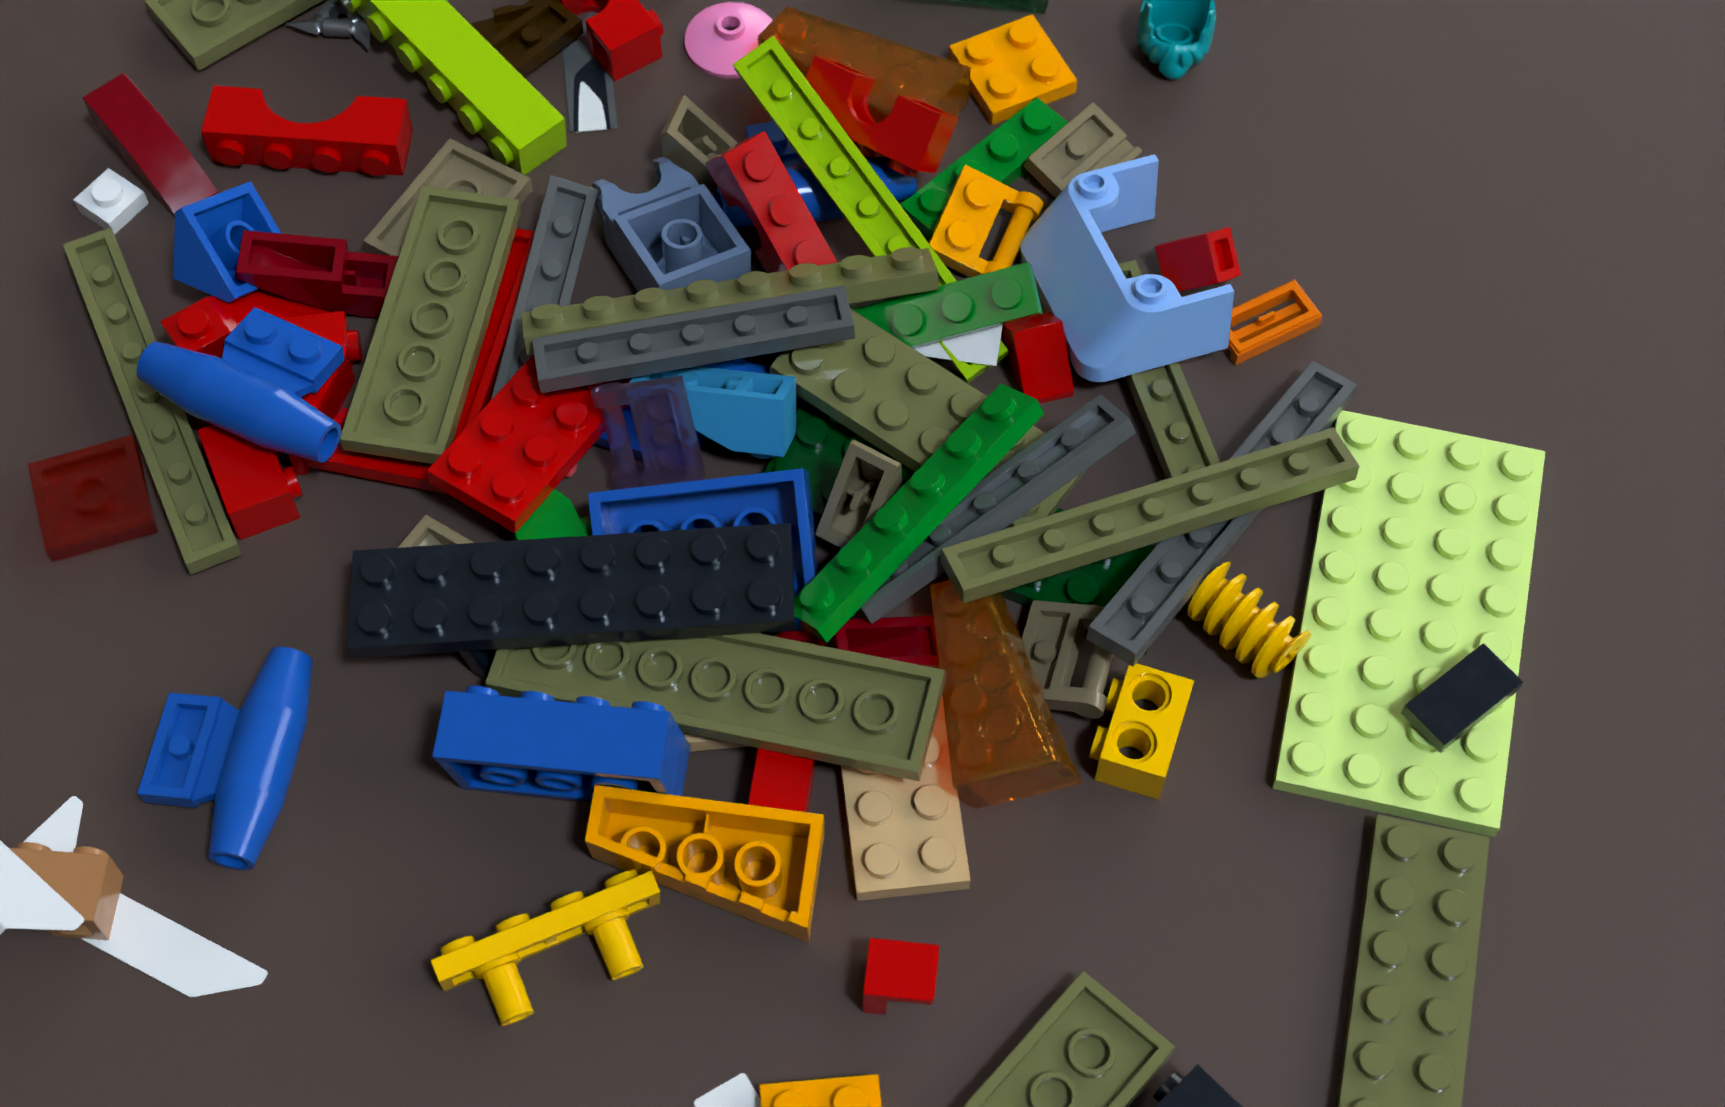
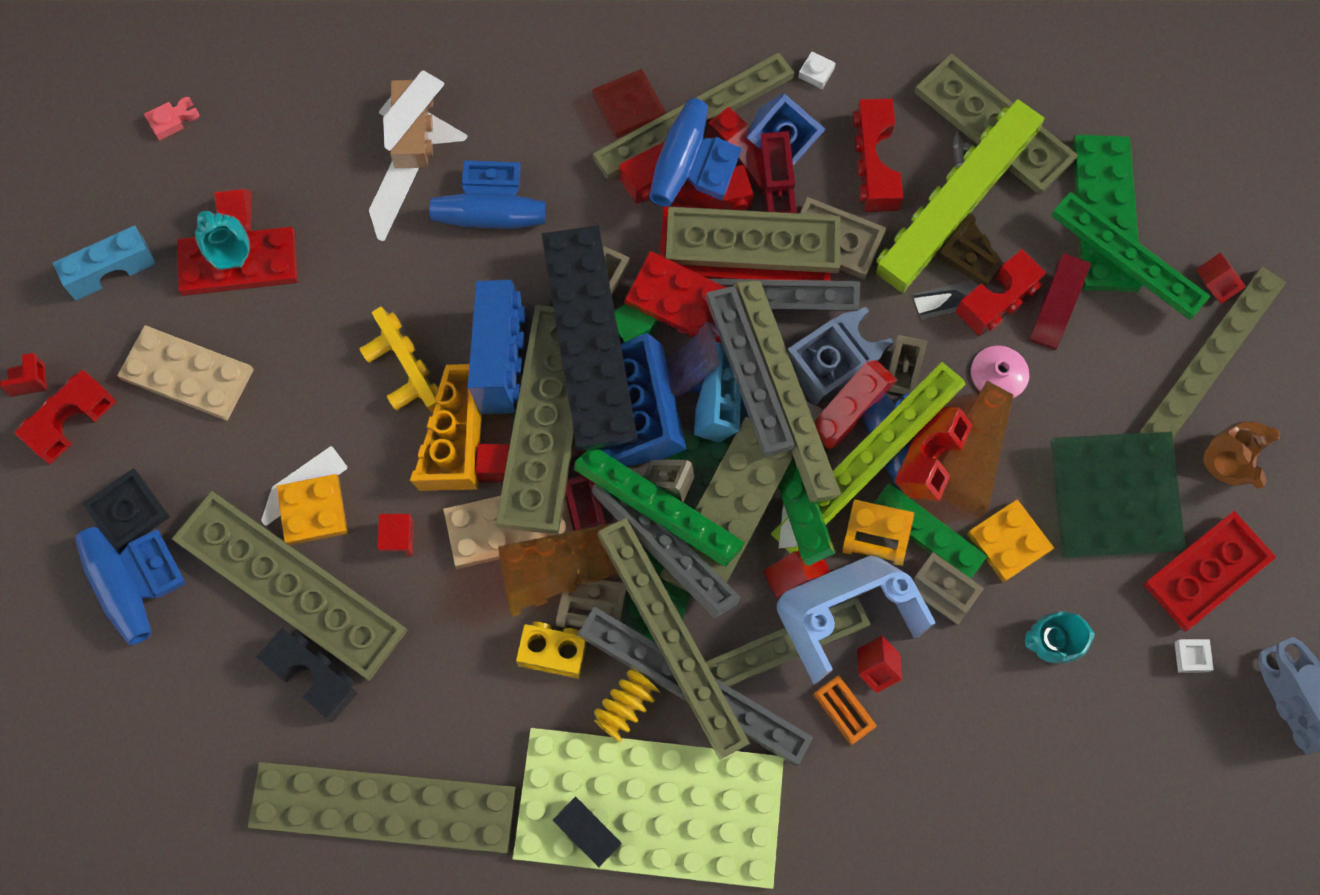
camera: 80 degrees right, 10 degrees up
(148, 144) = (851, 79): dark red slope -> none

